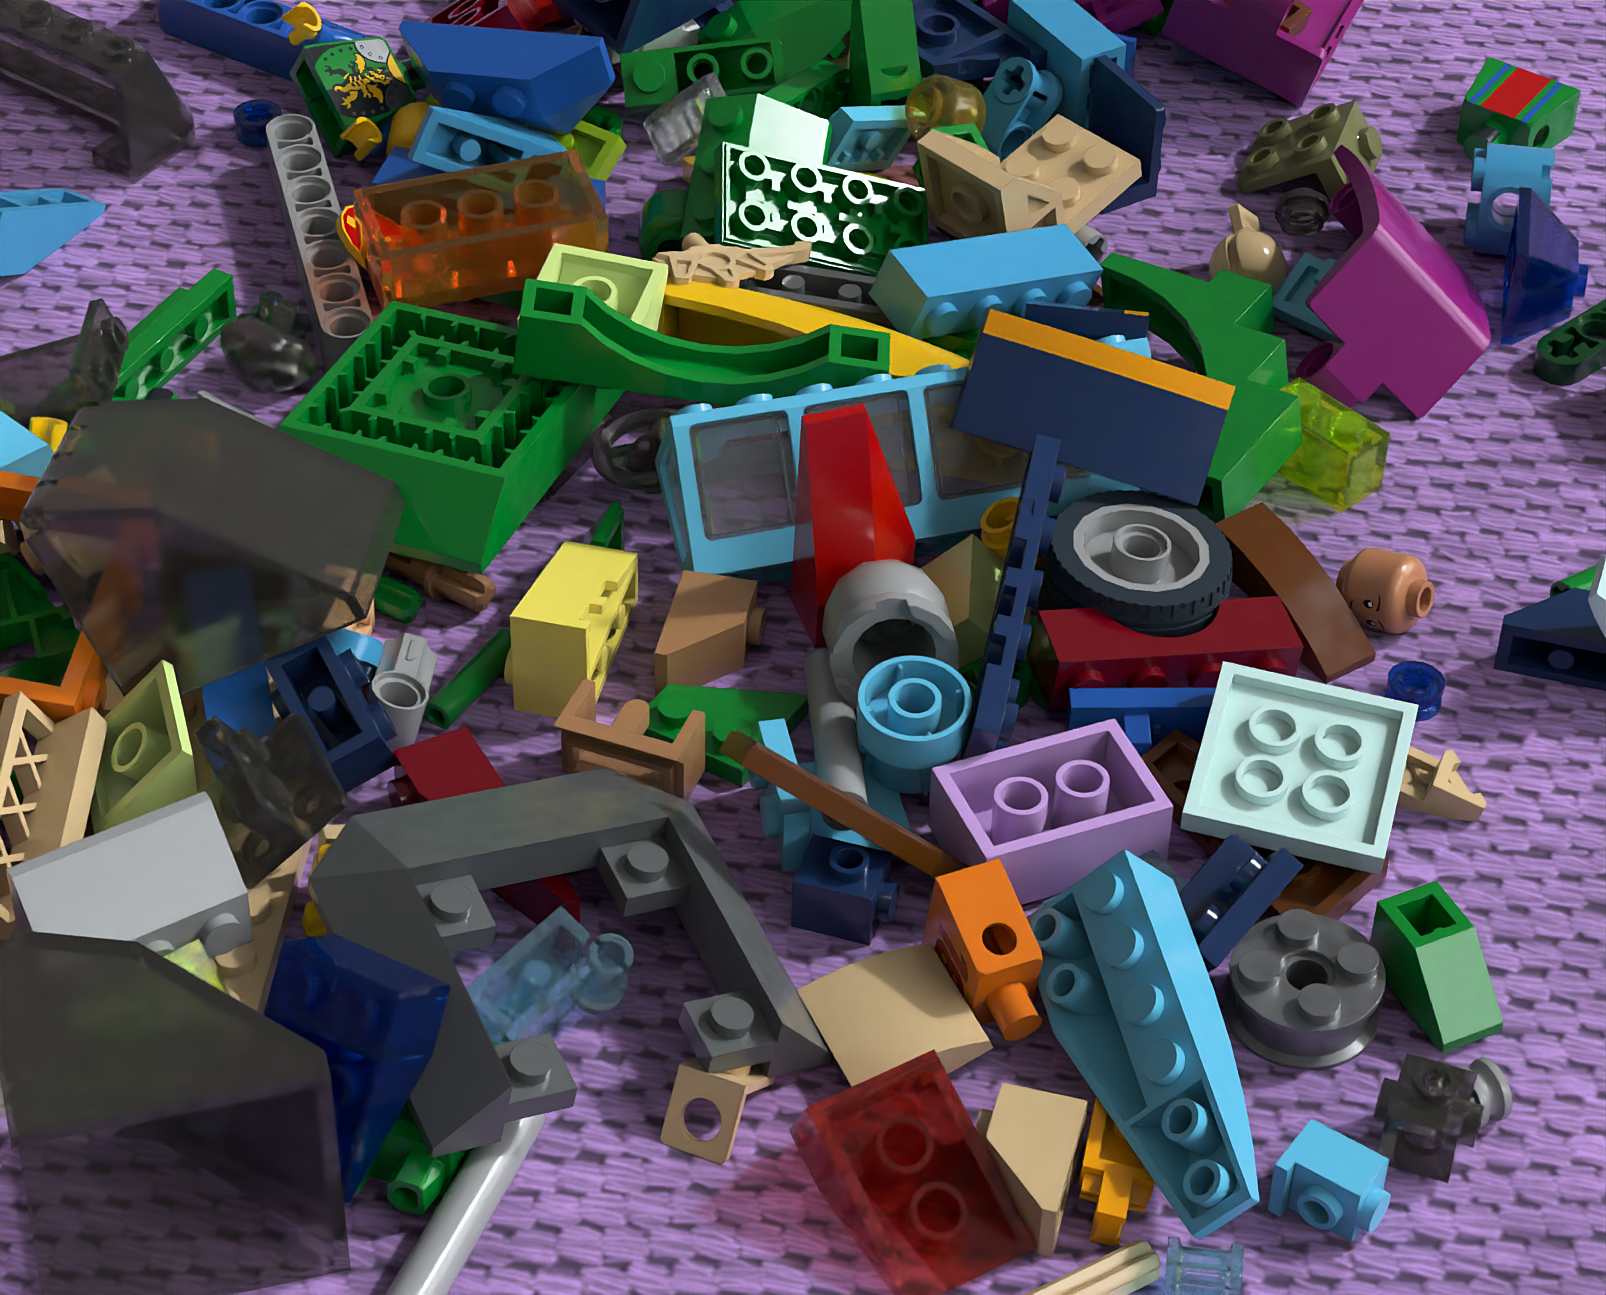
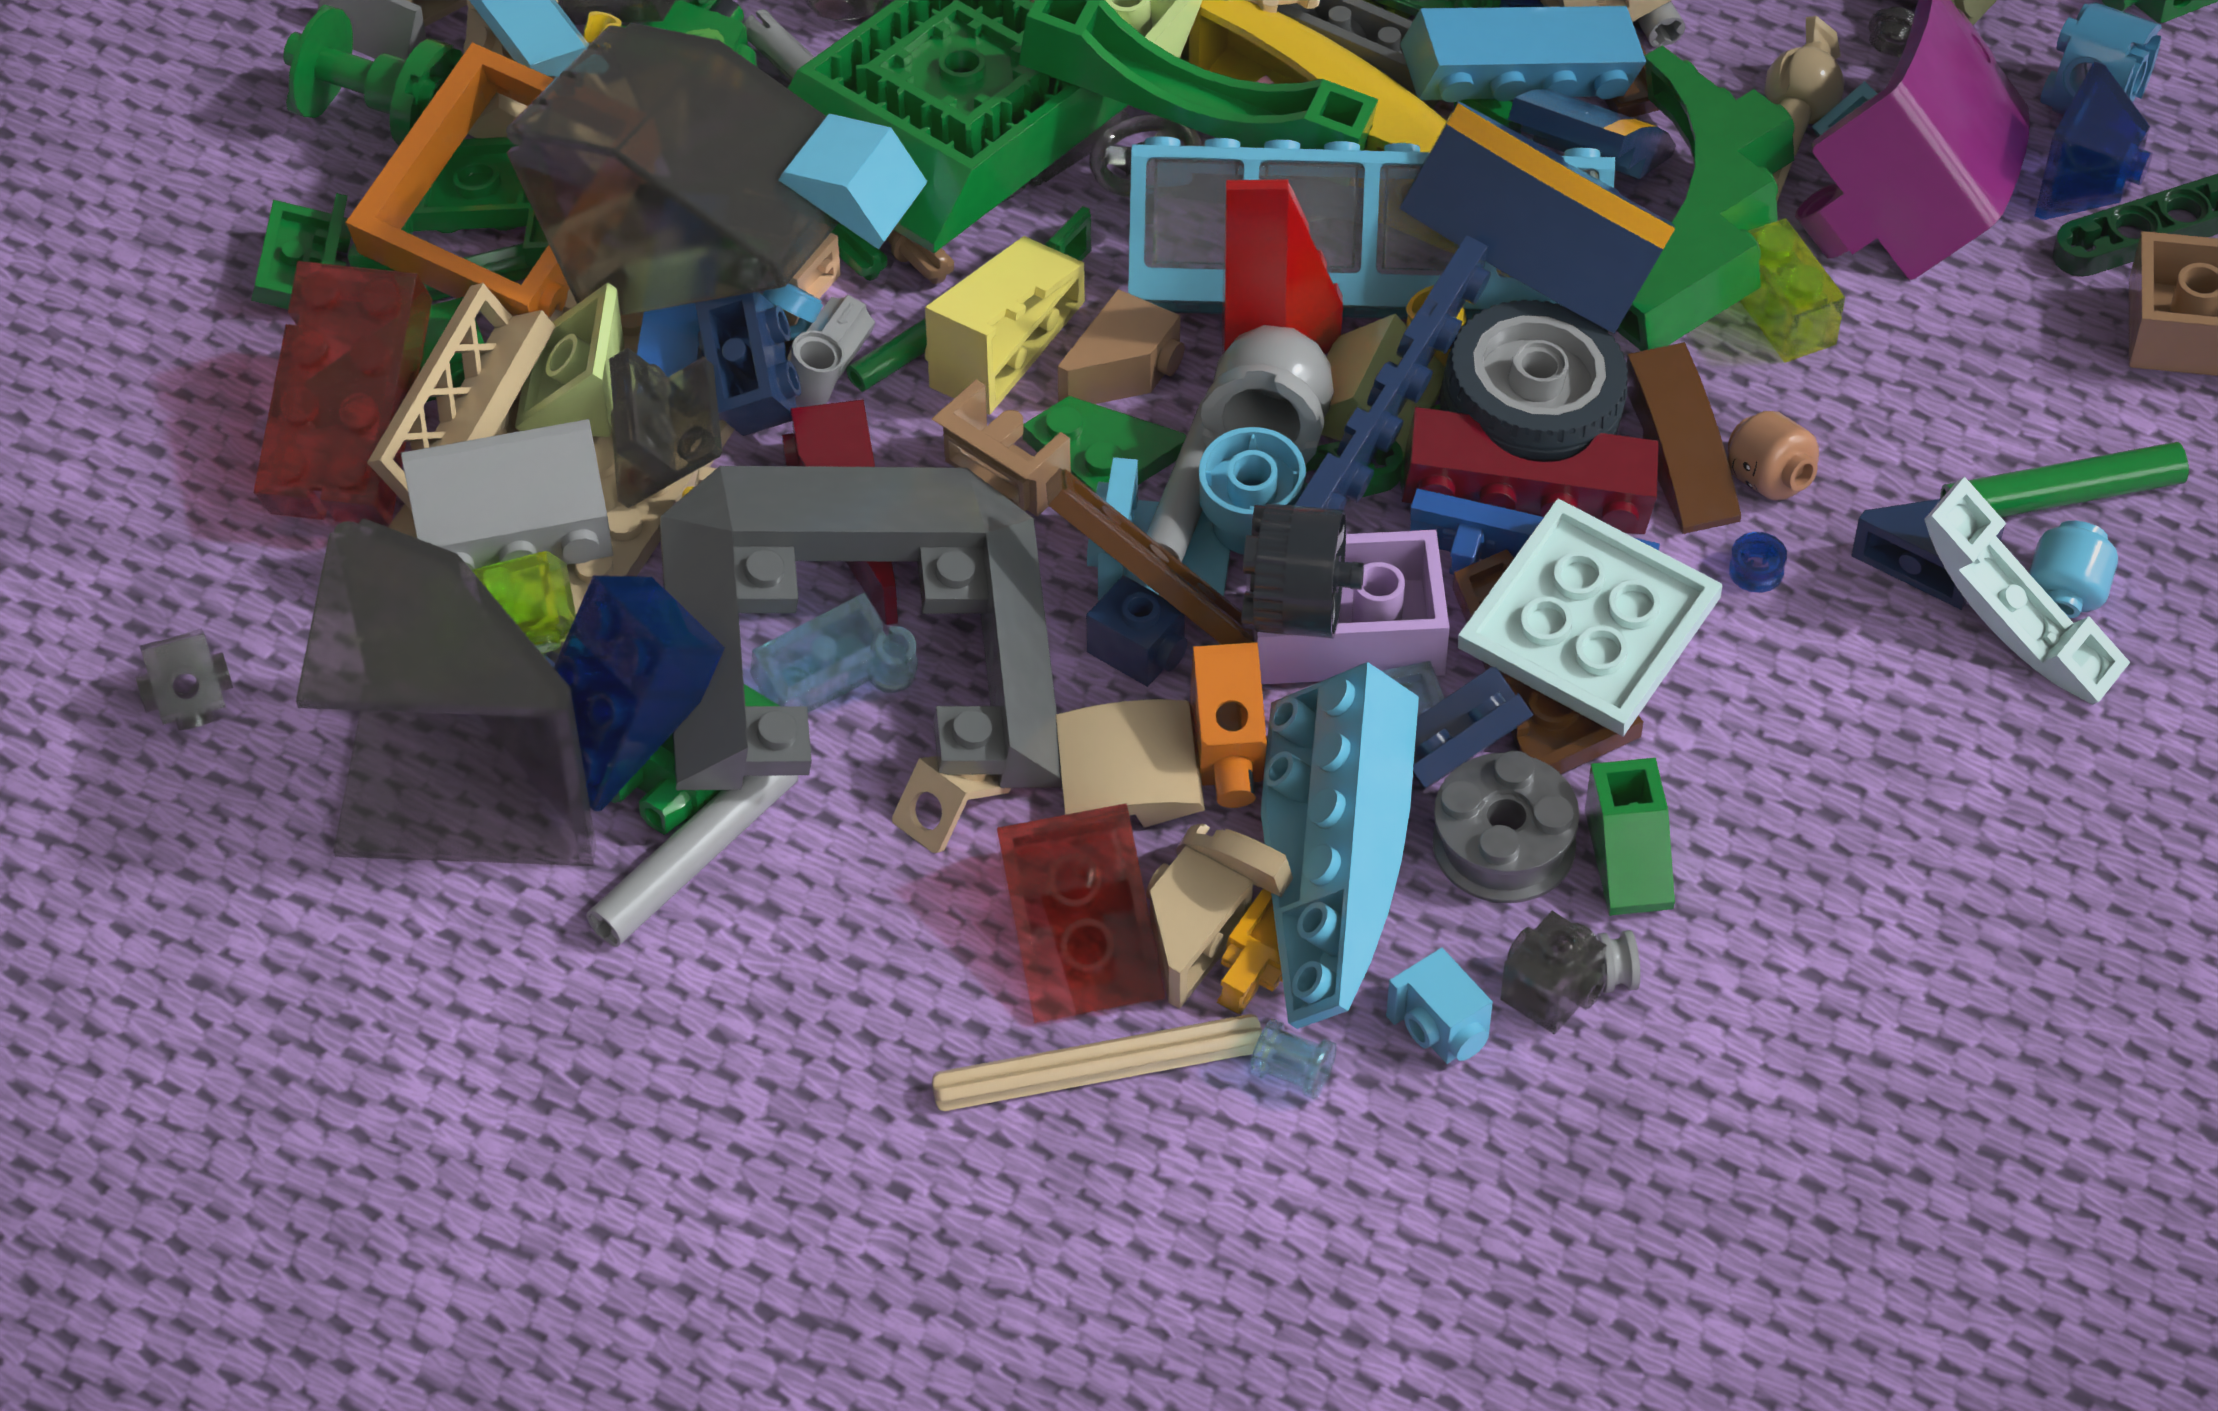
camera: 20 degrees right, 10 degrees up
(392, 502) = (856, 176): none -> medium azure slope
(1017, 776) = (1297, 570): none -> black piece
(1067, 1072) = (1243, 855): none -> tan tile
(1437, 788) = (1725, 657): tan slope -> none

